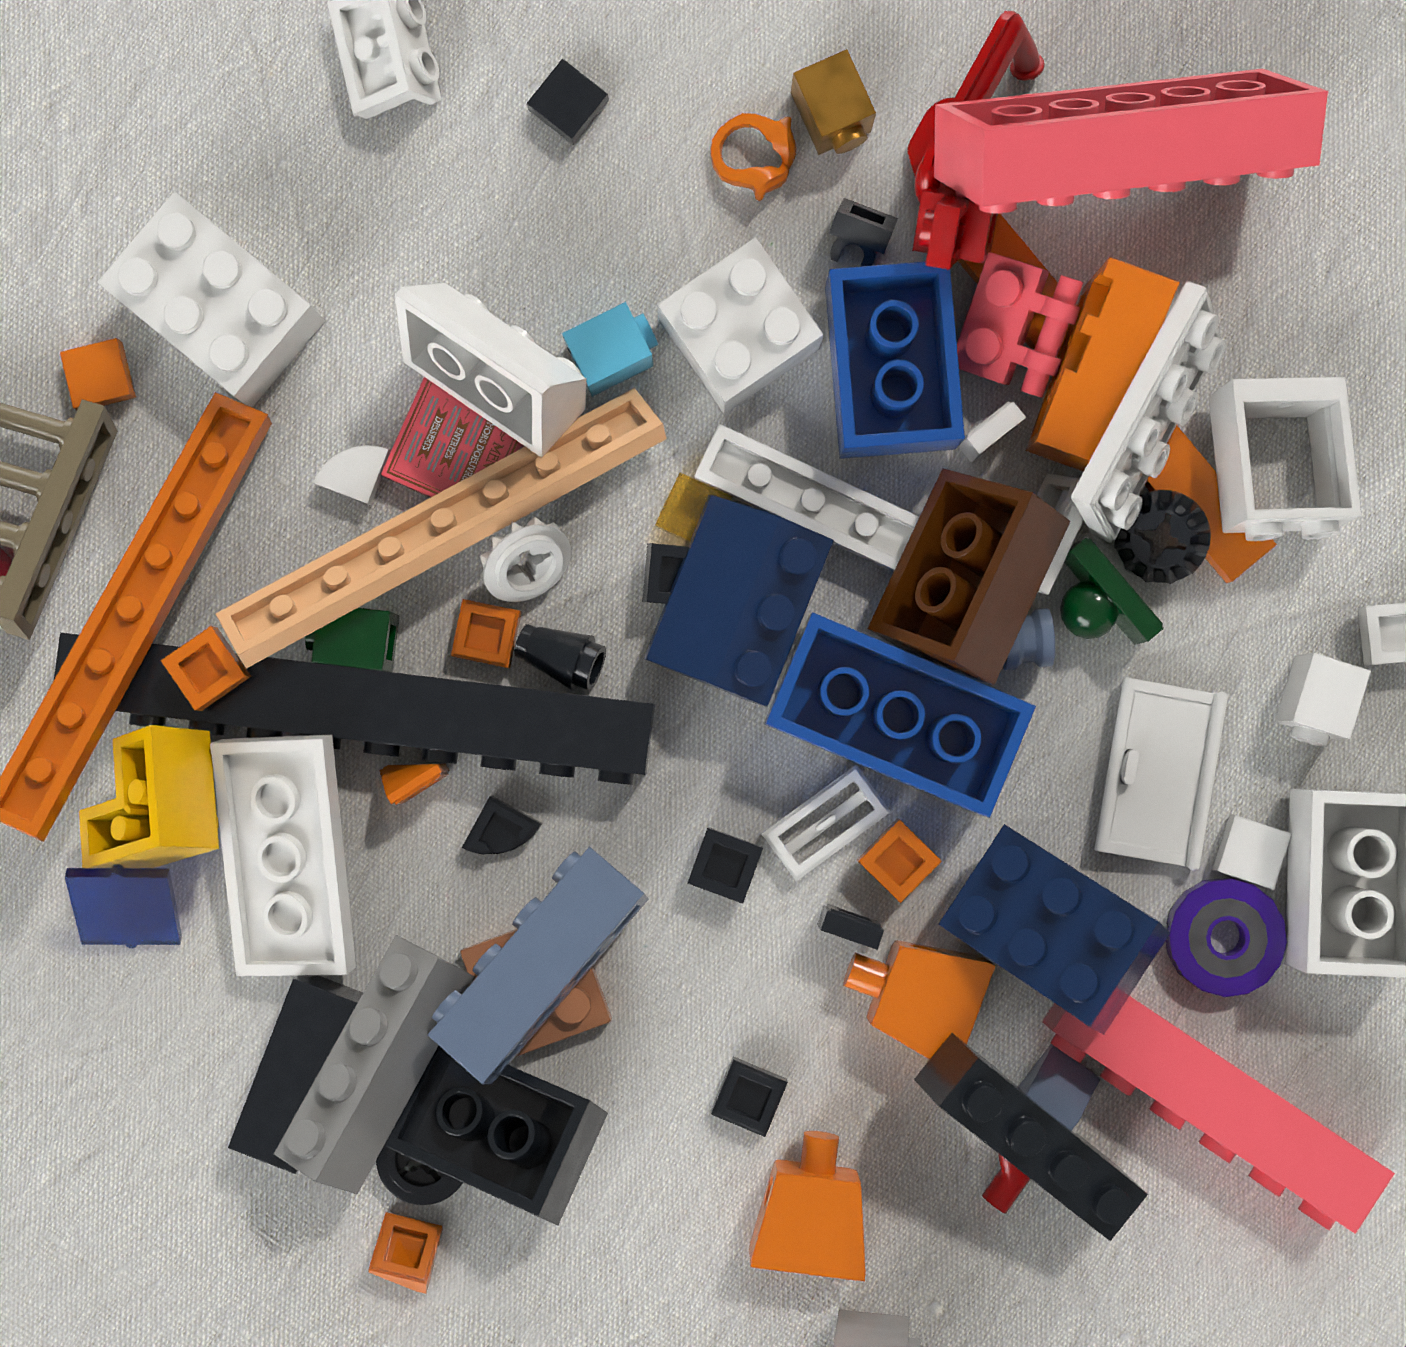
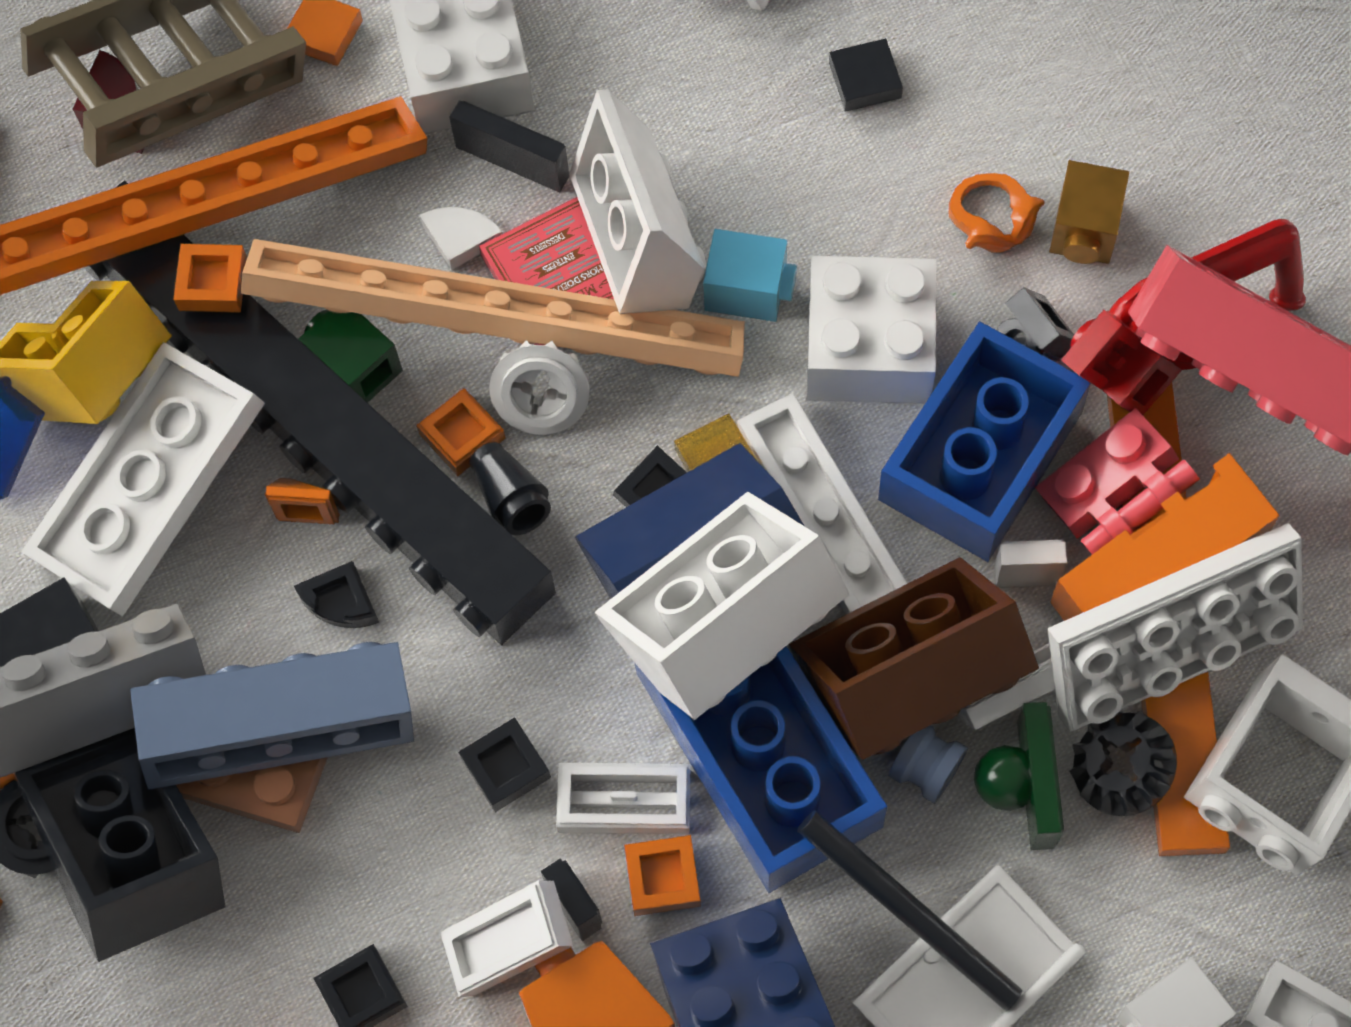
camera: 40 degrees right, 20 degrees down
(337, 372) = (510, 145): none -> black tile
(814, 646) = (724, 603): none -> white slope
(830, 991) = (506, 938): none -> white tile
(1097, 765) = (909, 910): none -> black bar

